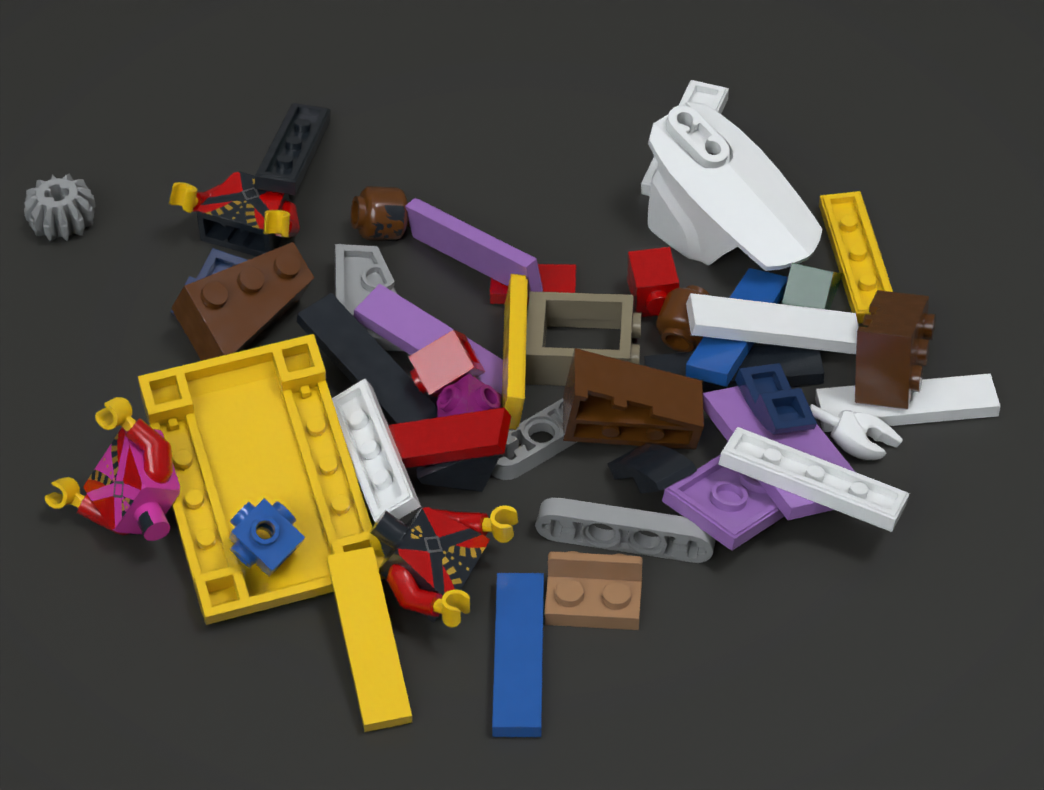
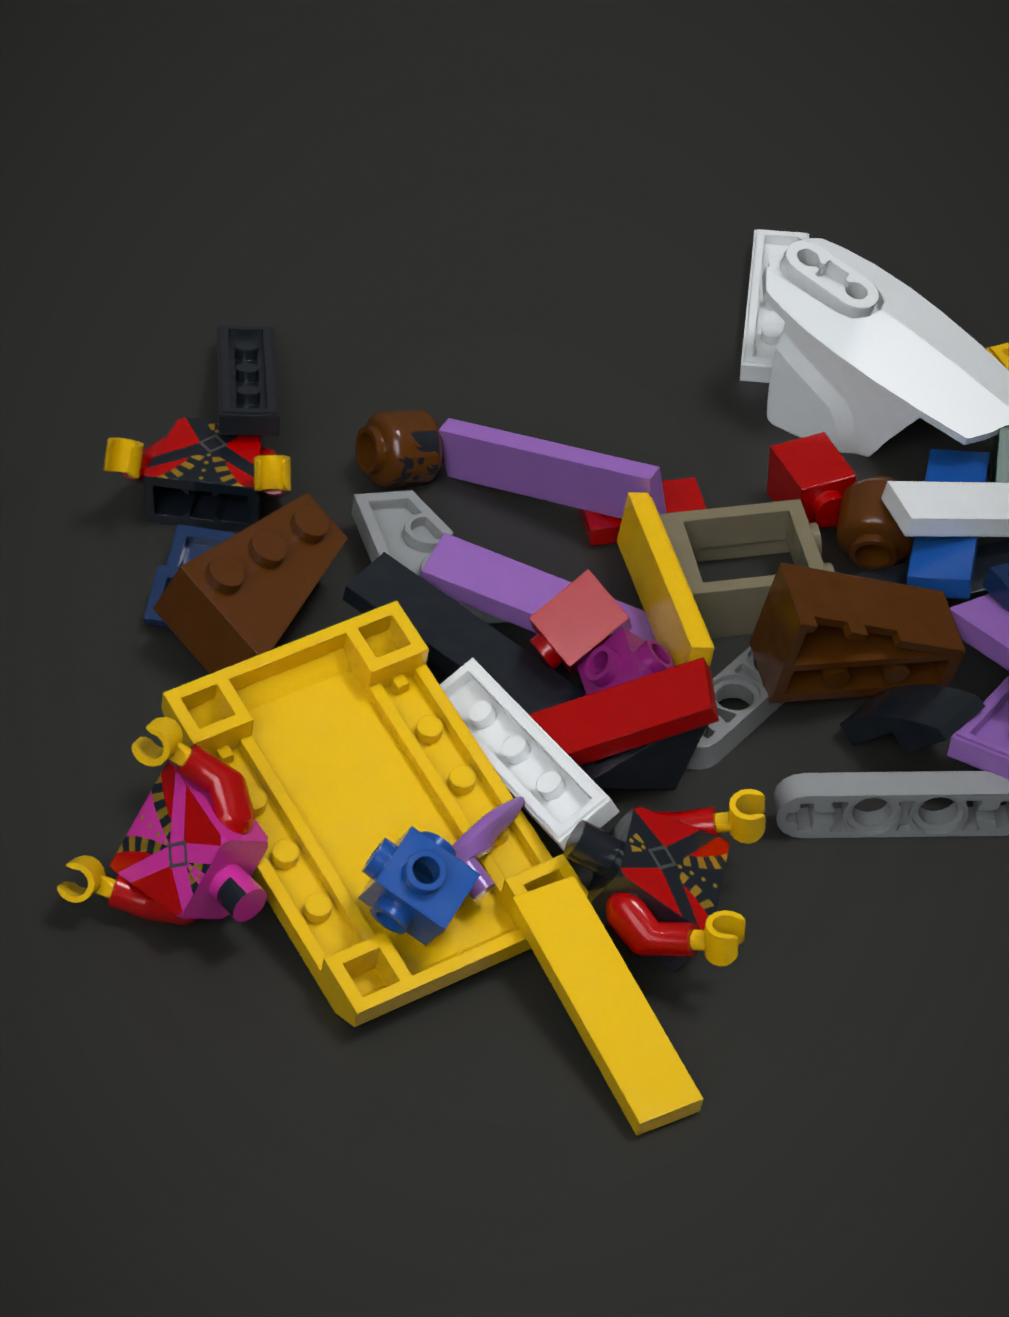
camera: 15 degrees left, 5 degrees down
(320, 511) = (481, 839): none -> medium lavender bar
(518, 655) = (818, 995): blue tile -> none
(593, 590) = (890, 890): medium nougat bracket -> none

